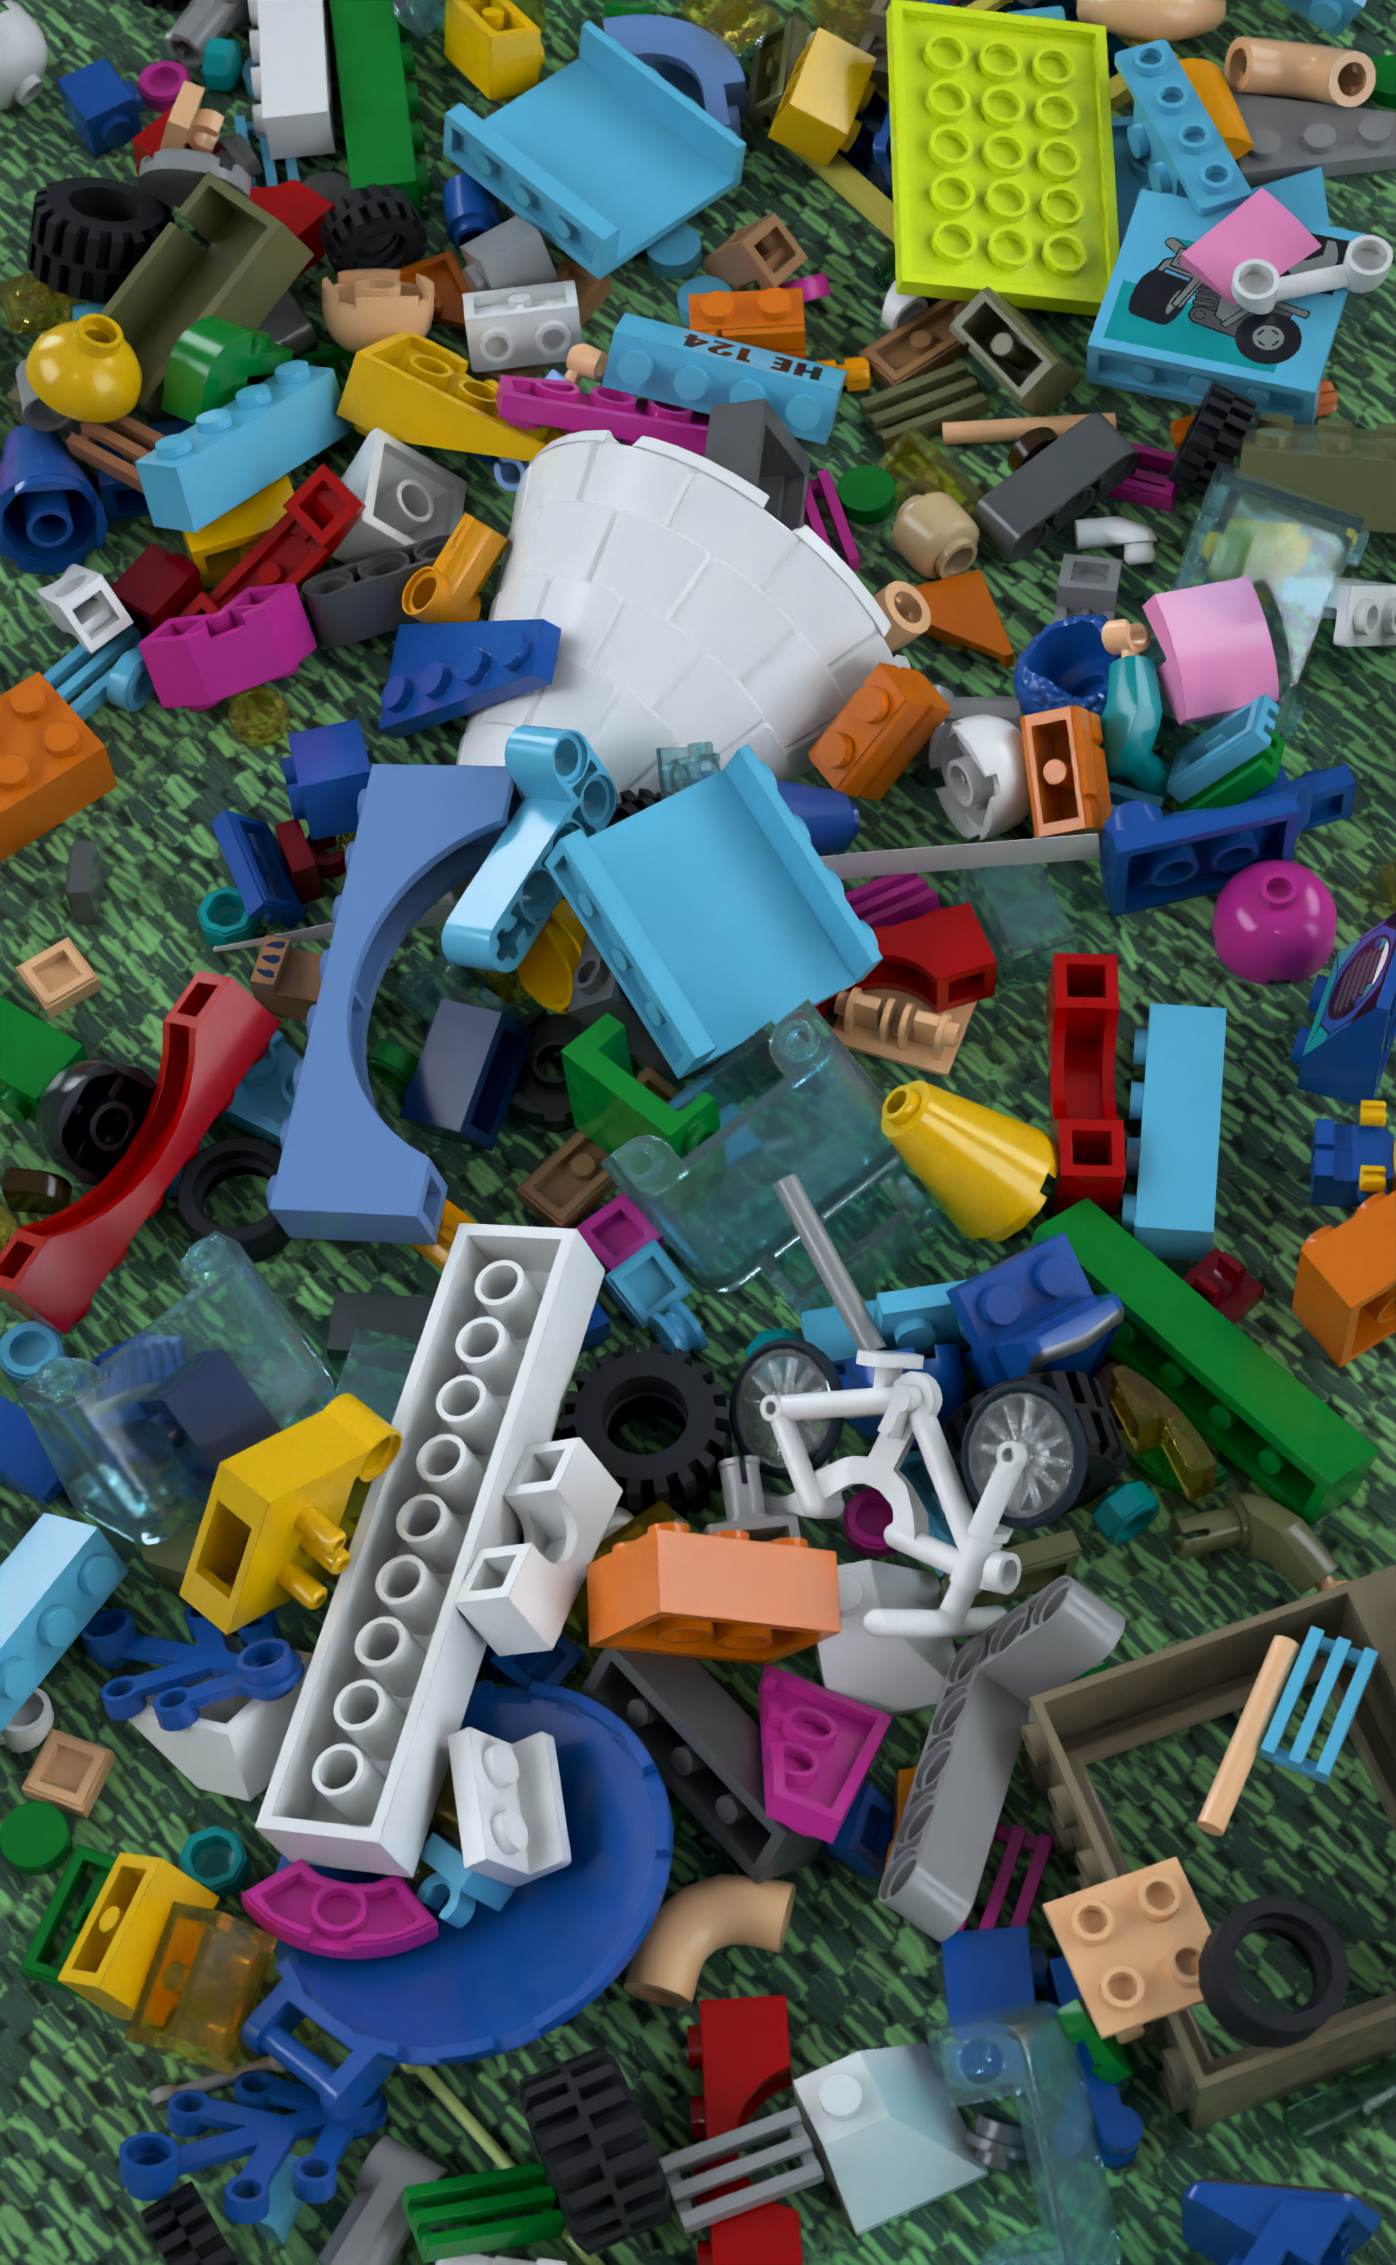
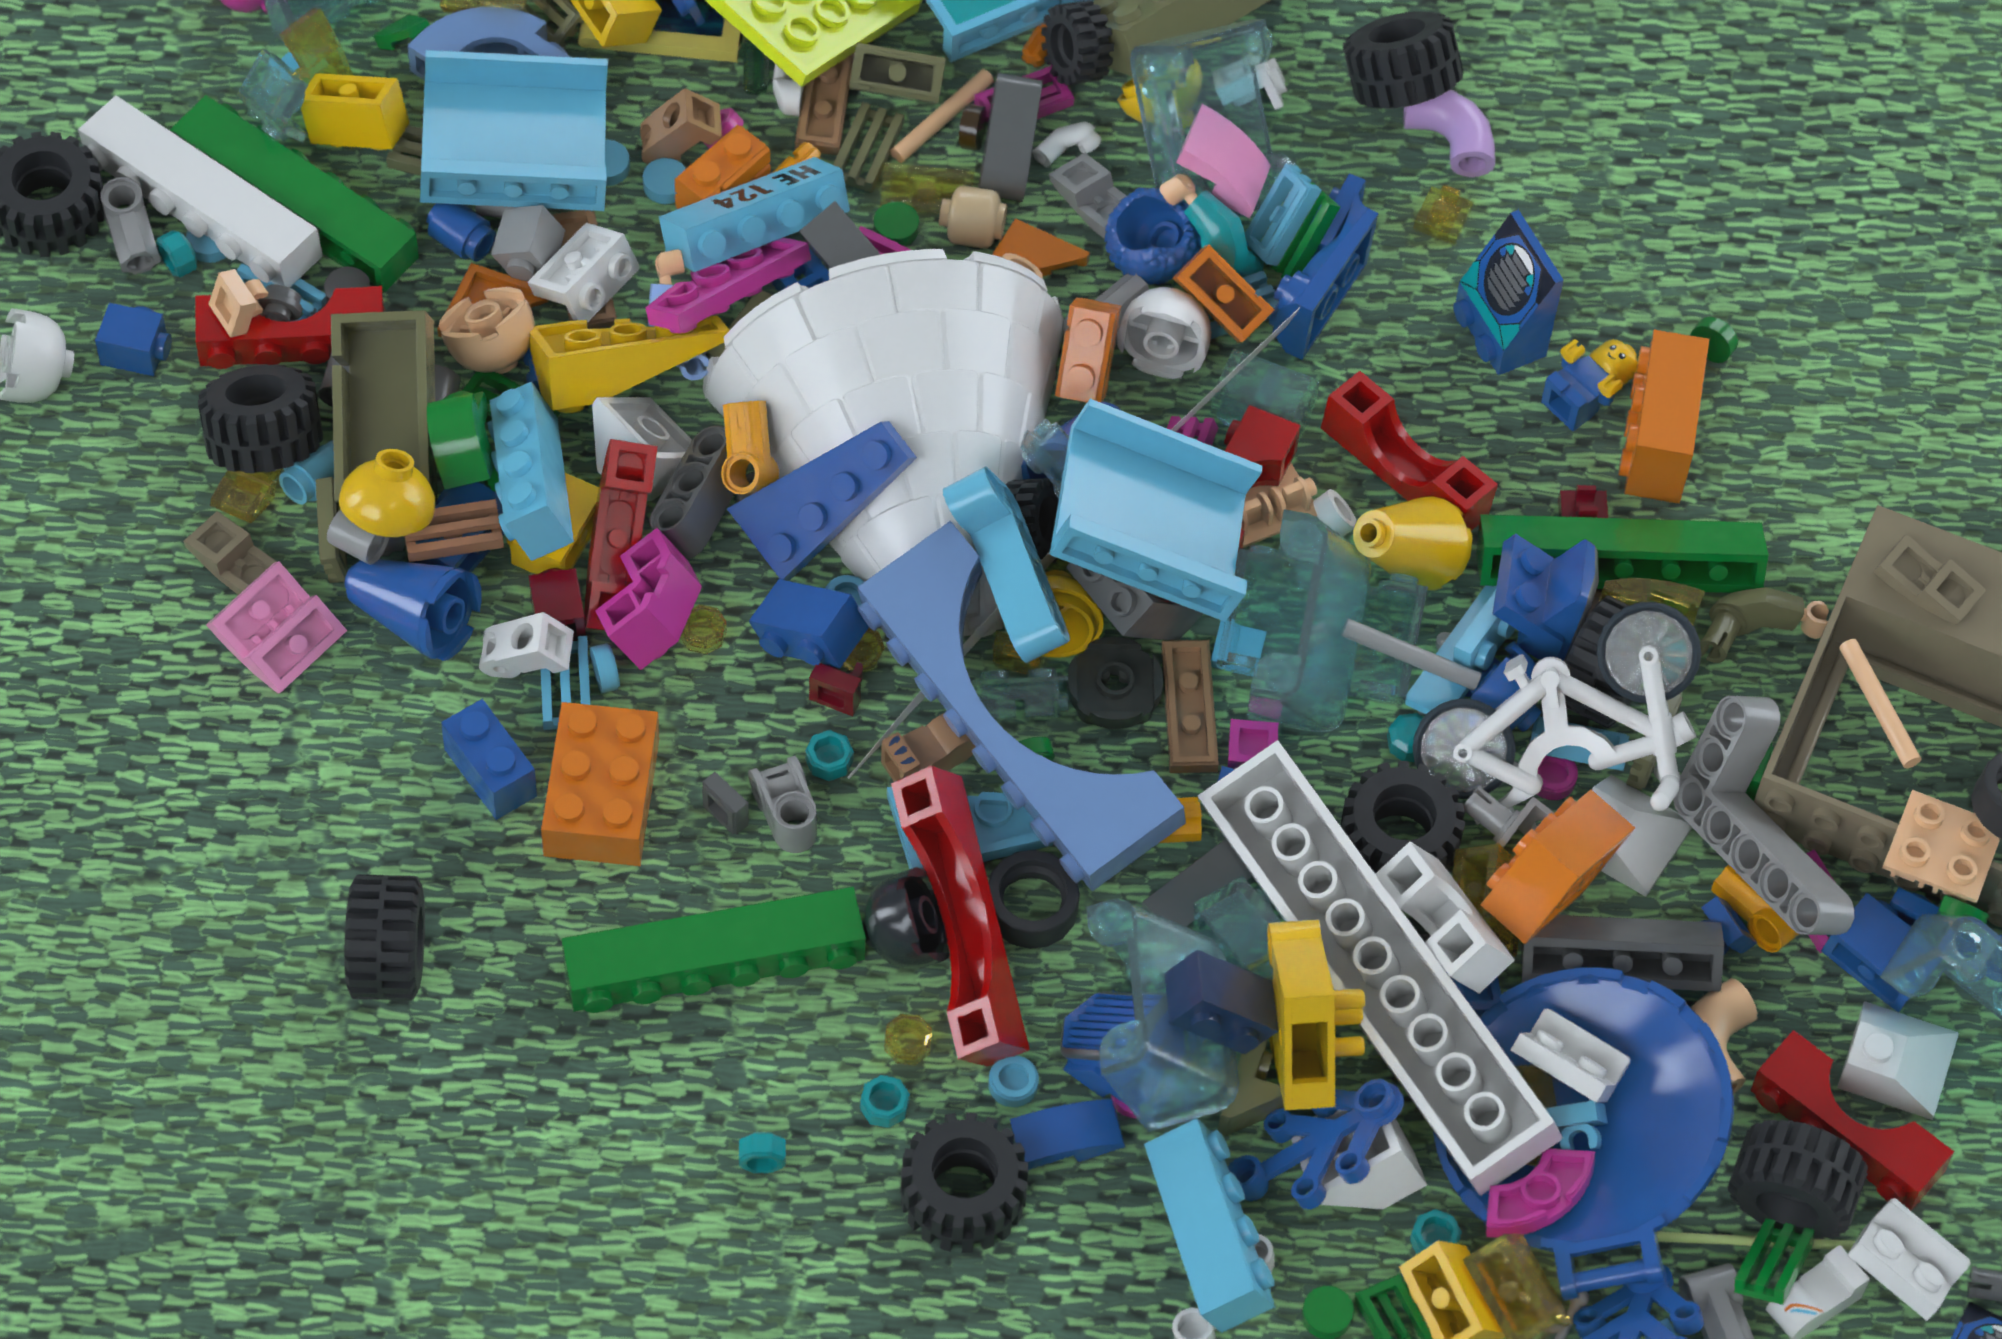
camera: 55 degrees left, 0 degrees up
(35, 1191) = (913, 992): dark brown tile -> none
(58, 978) = (768, 871): light nougat tile -> none
(69, 1773) = (1304, 1266): light nougat tile -> none
(140, 922) = (783, 798): none -> light grey piece
(161, 84) = (148, 291): dark pink tile -> none
(177, 172) = (299, 332): light grey tile -> none
(258, 869) = (816, 712): blue tile -> none
(366, 215) = (429, 282): black tyre -> none
(466, 1074) = (1083, 721): dark blue piece -> none
(616, 1107) = (1214, 666): green panel -> none
(646, 1284) = (1306, 751): medium azure tile -> none
(678, 1329) = (1346, 764): dark azure bush -> none
(728, 2144) = (1885, 1090): light grey tile -> none
(814, 1752) = (1678, 900): dark pink wing -> none
(956, 1073) = (1335, 512): none -> white tile
(997, 2142) = (1954, 1009): dark grey plate -> none
(1178, 1131) = (1462, 424): medium azure brick -> none
(1274, 922) = (1395, 293): dark pink cylinder -> none
(1339, 1653) = (1910, 652): medium azure tile -> none

